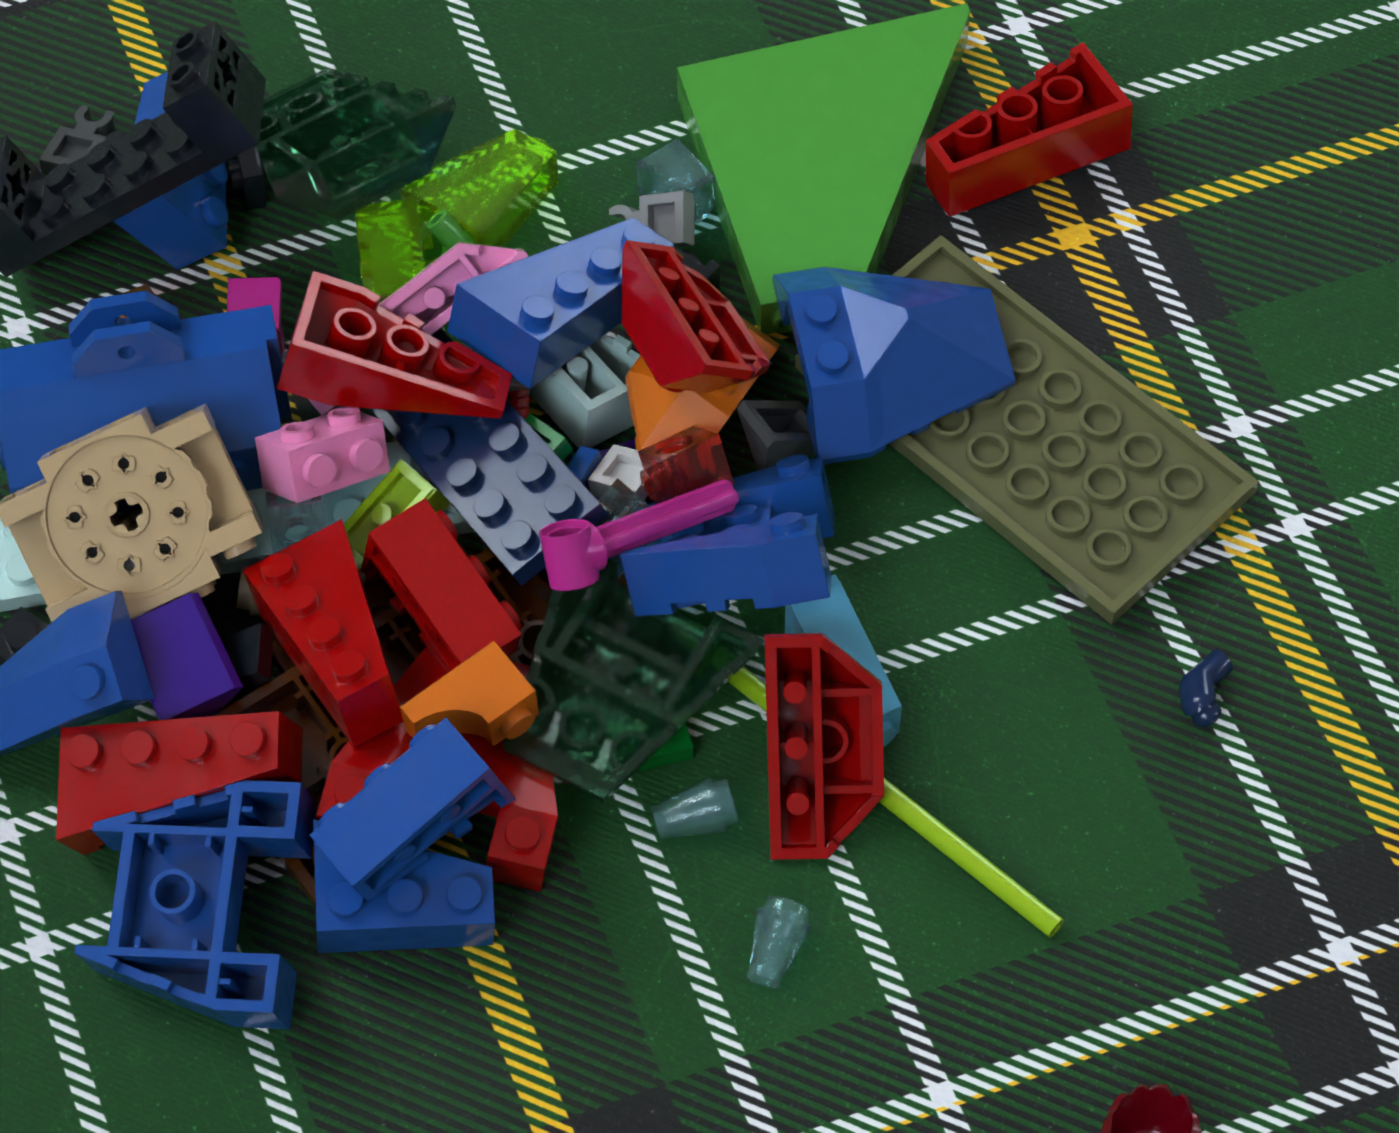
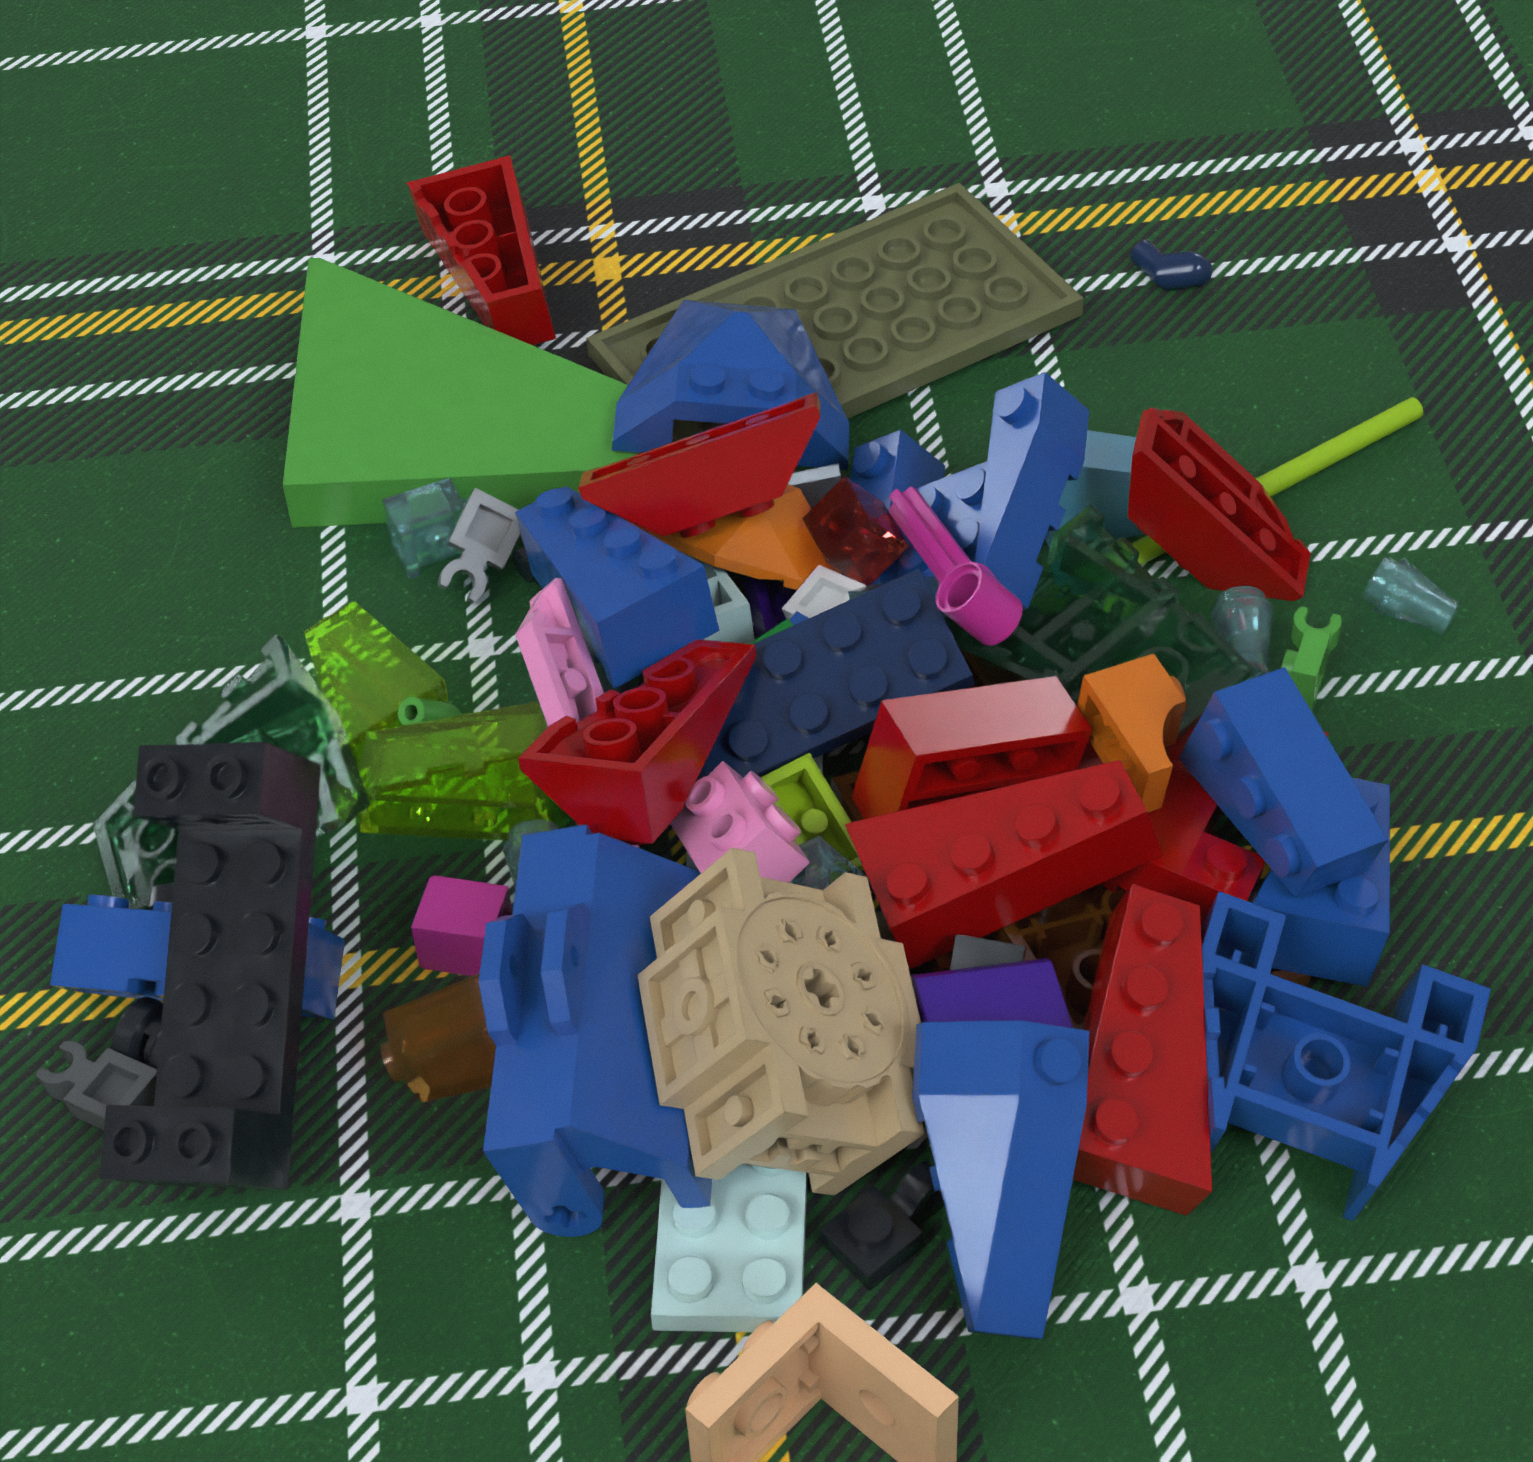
camera: 75 degrees left, 10 degrees down
(666, 865) = (1309, 662): none -> bright green plate

